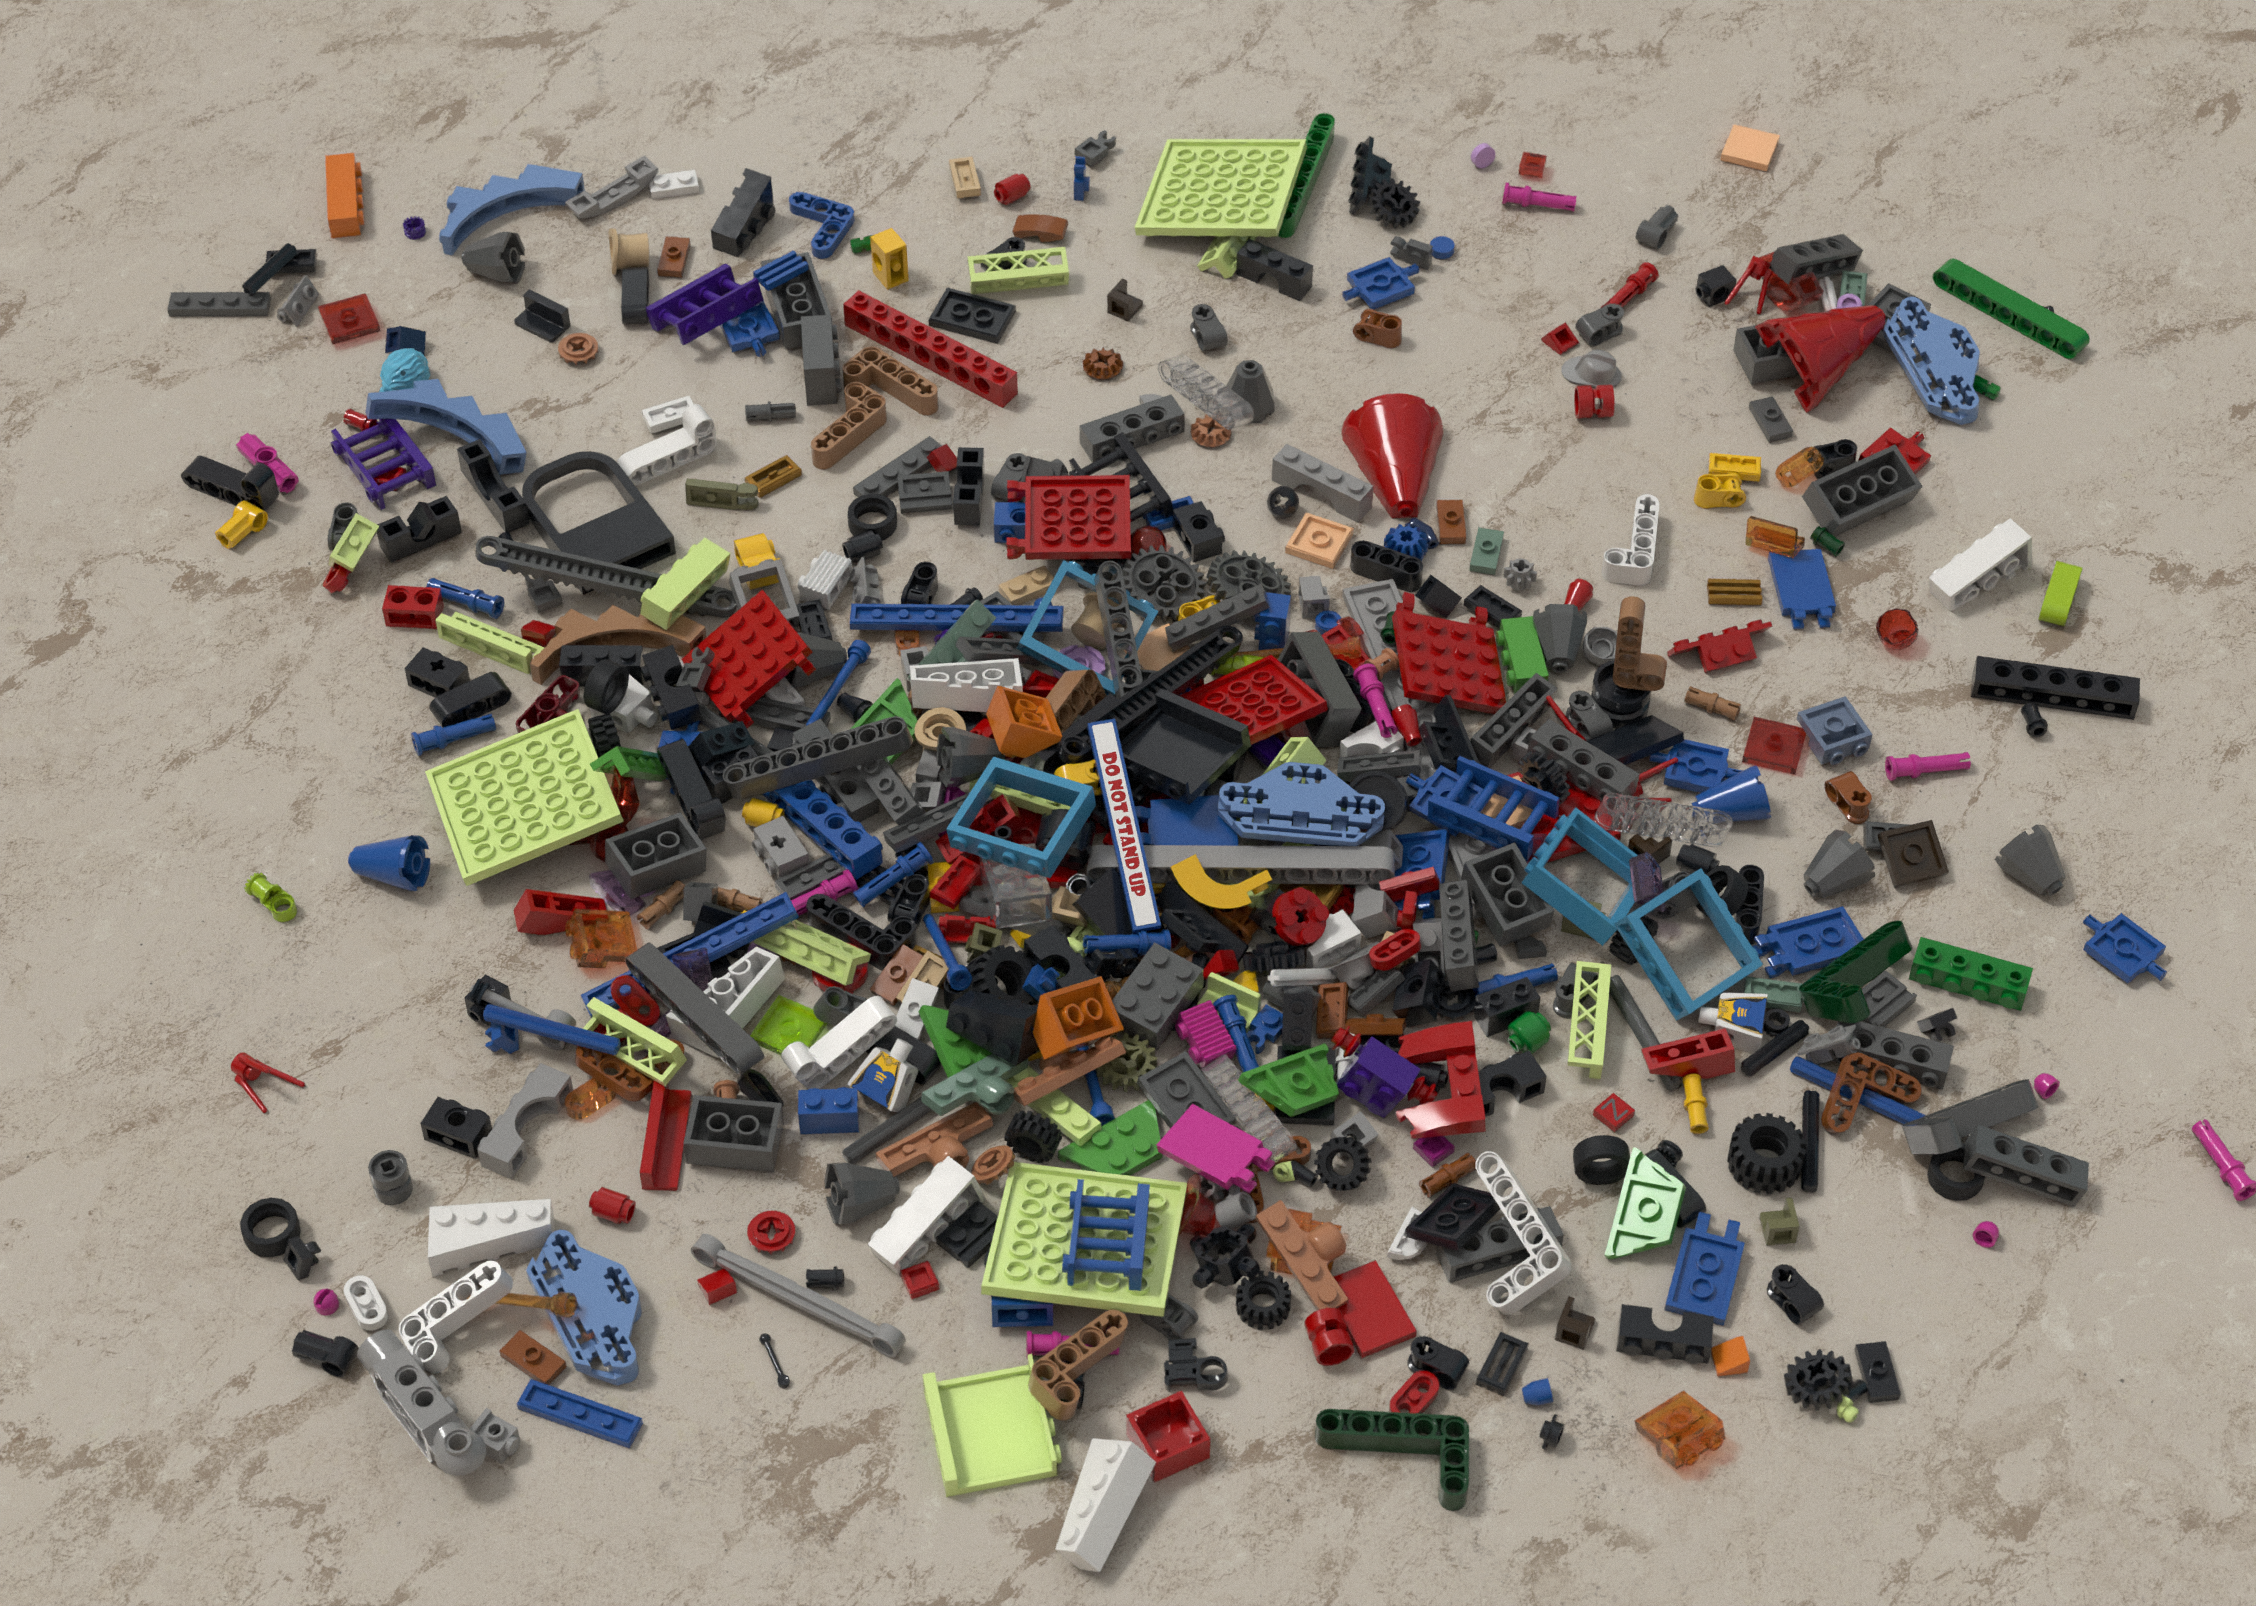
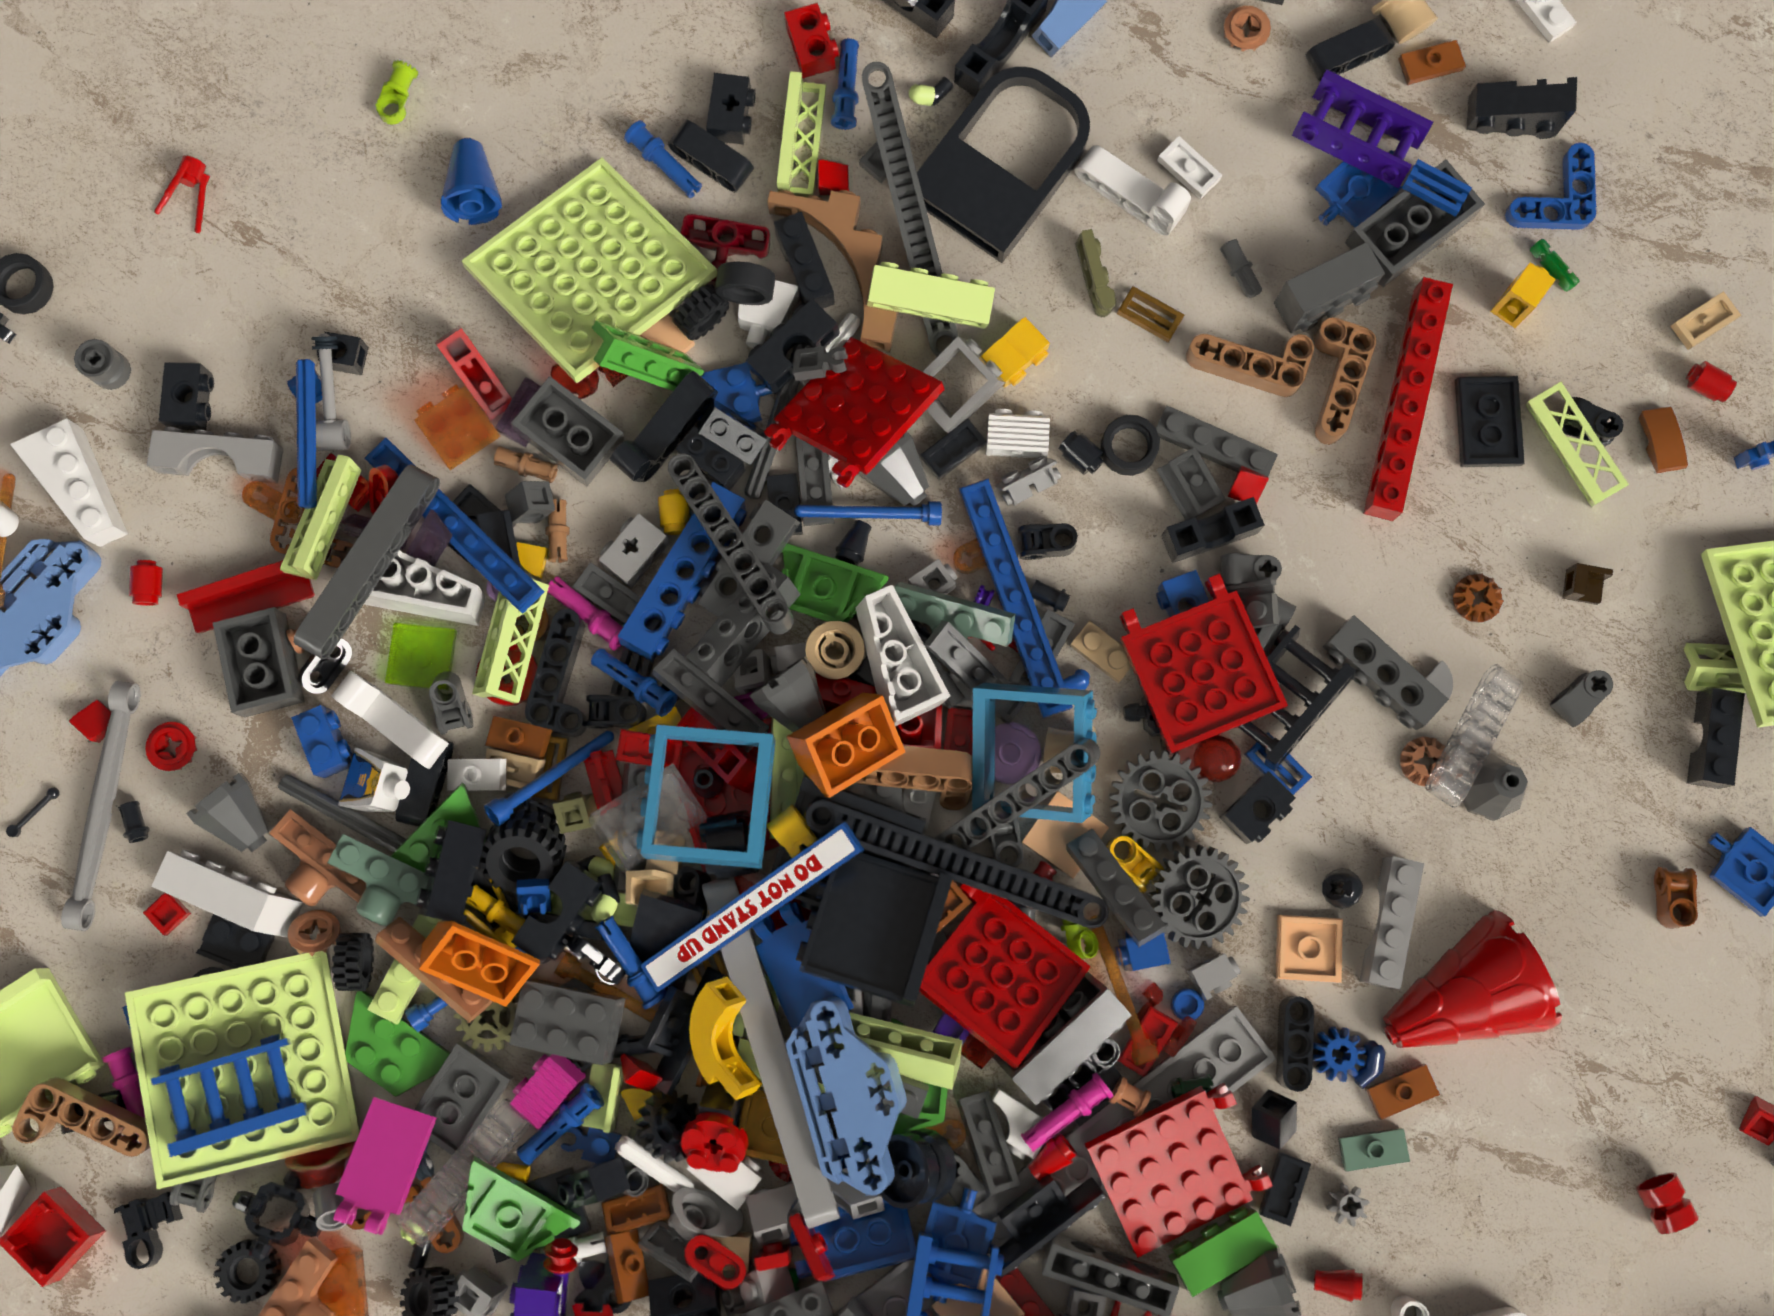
camera: 70 degrees right, 30 degrees up
(1592, 369) = (1726, 1177): light grey piece -> none

